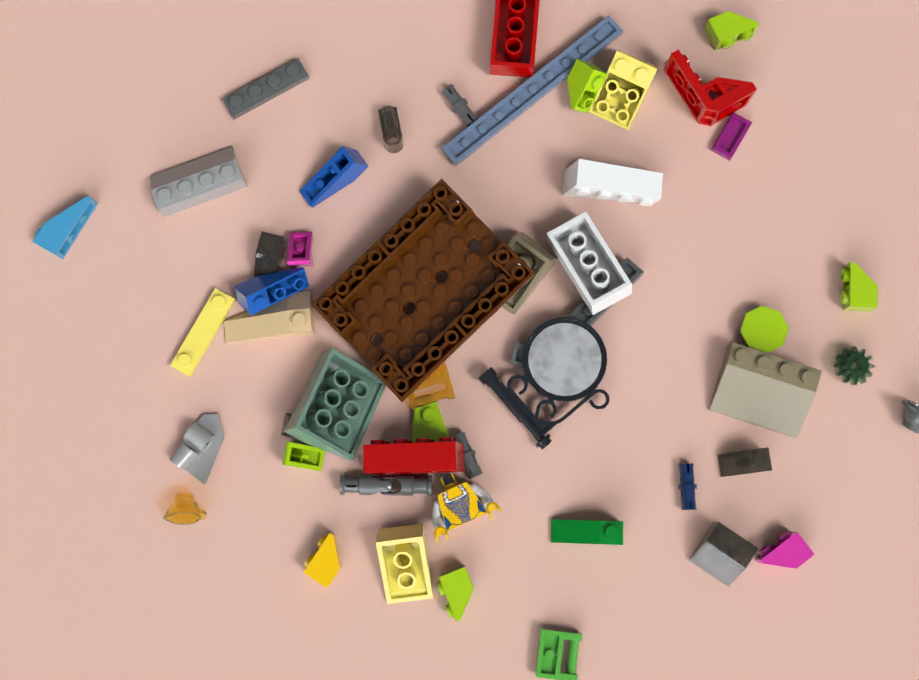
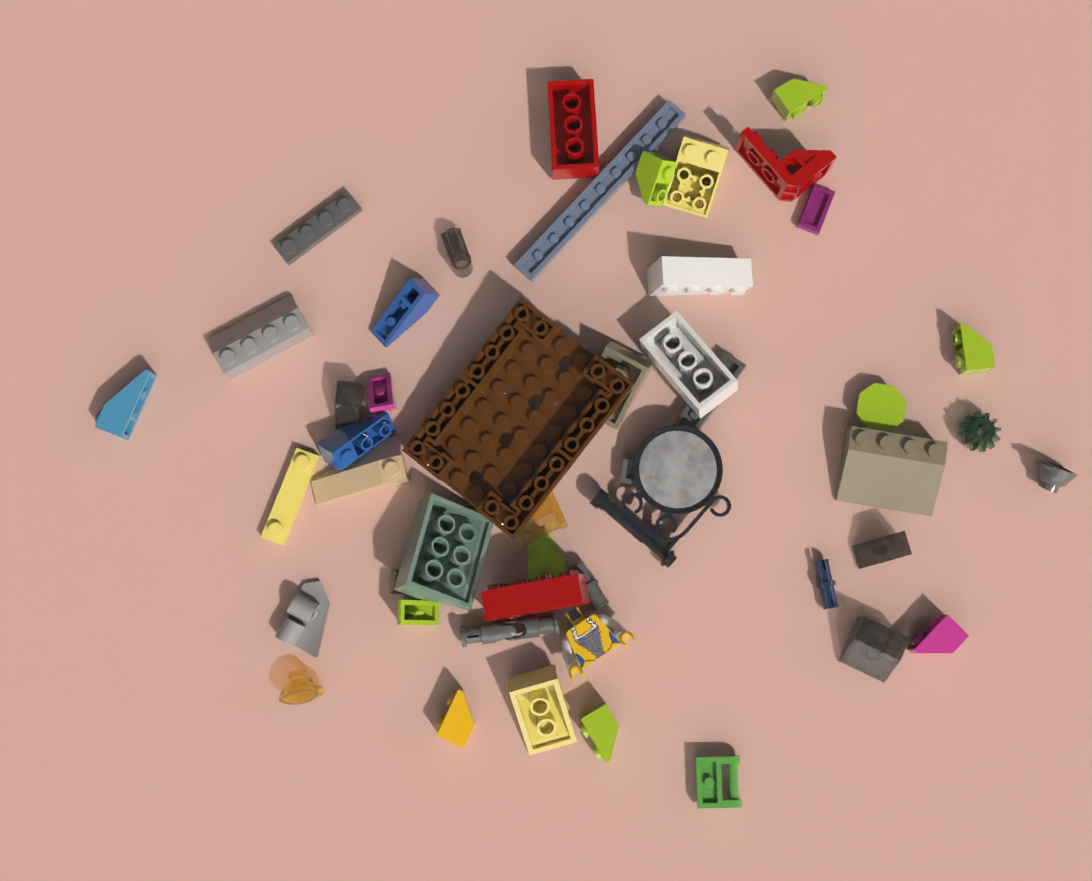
camera: 10 degrees left, 0 degrees up
(459, 105) = (526, 217): dark grey pin -> none
(587, 532) = (728, 647): green slope -> none

